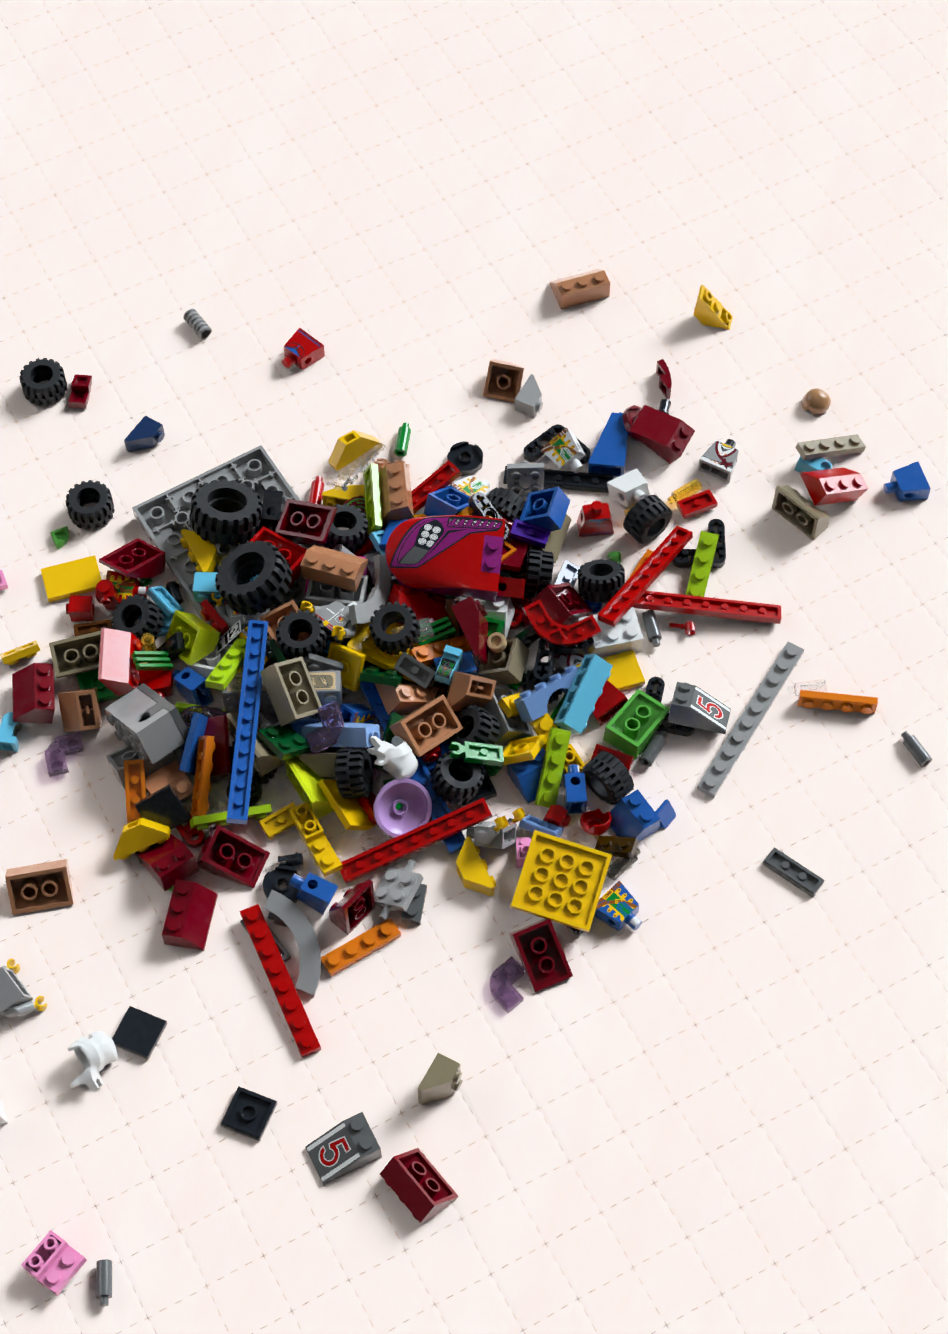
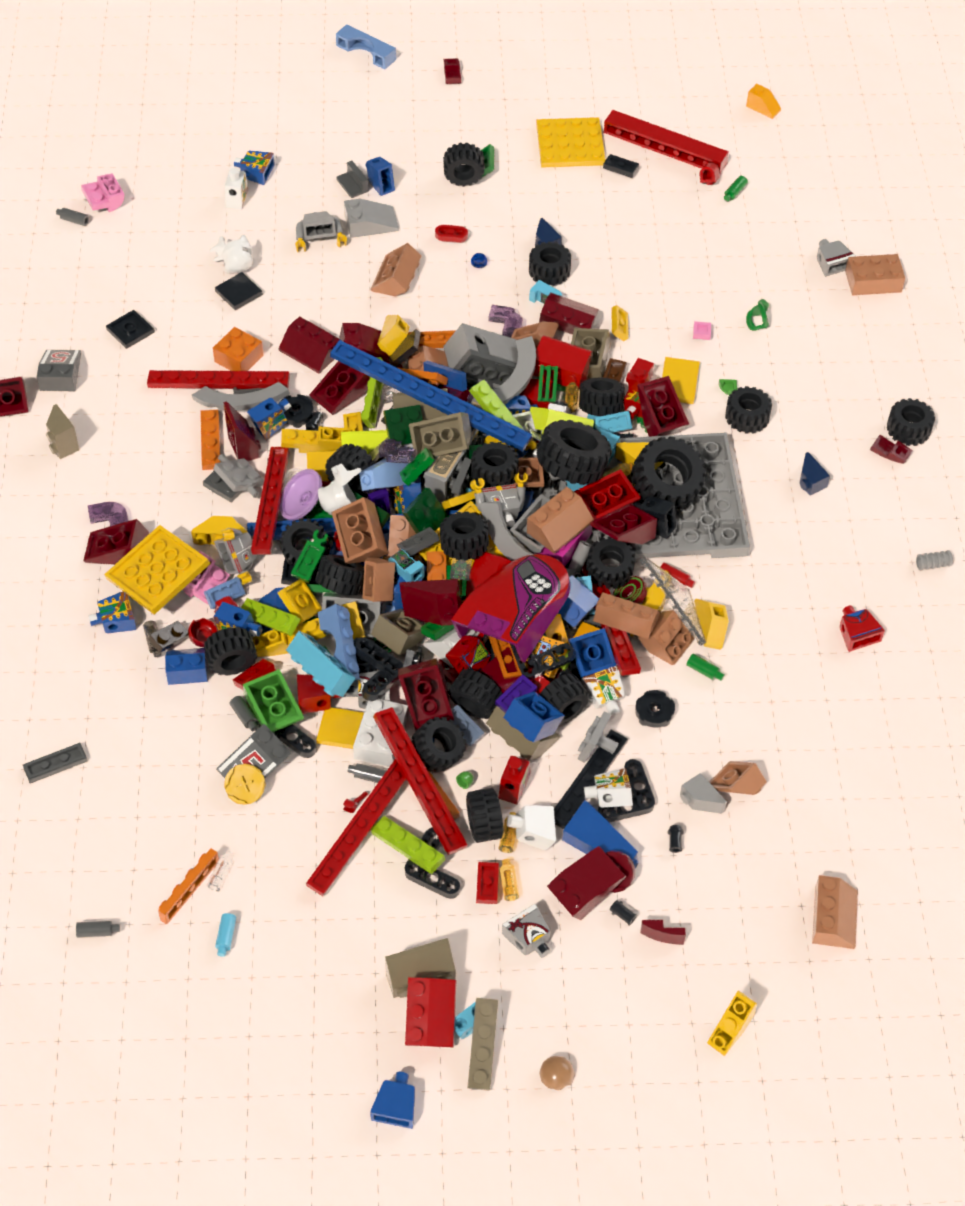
camera: 115 degrees right, 5 degrees down
(160, 679) = (522, 373): none -> light grey tile
(233, 978) = (238, 350): none -> orange brick
(328, 693) = (418, 465): none -> green plate
(372, 498) = (624, 592): lime plate -> none
(496, 642) = (415, 622): tan tile -> none
(556, 633) = (396, 659): red plate -> none
(575, 402) = (675, 838): none -> black pin
(666, 813) = (175, 690): blue slope -> none
(724, 707) = (244, 784): none -> yellow tile
(750, 719) = (225, 811): light grey plate -> none
(857, 657) = (225, 933): none -> medium azure cylinder

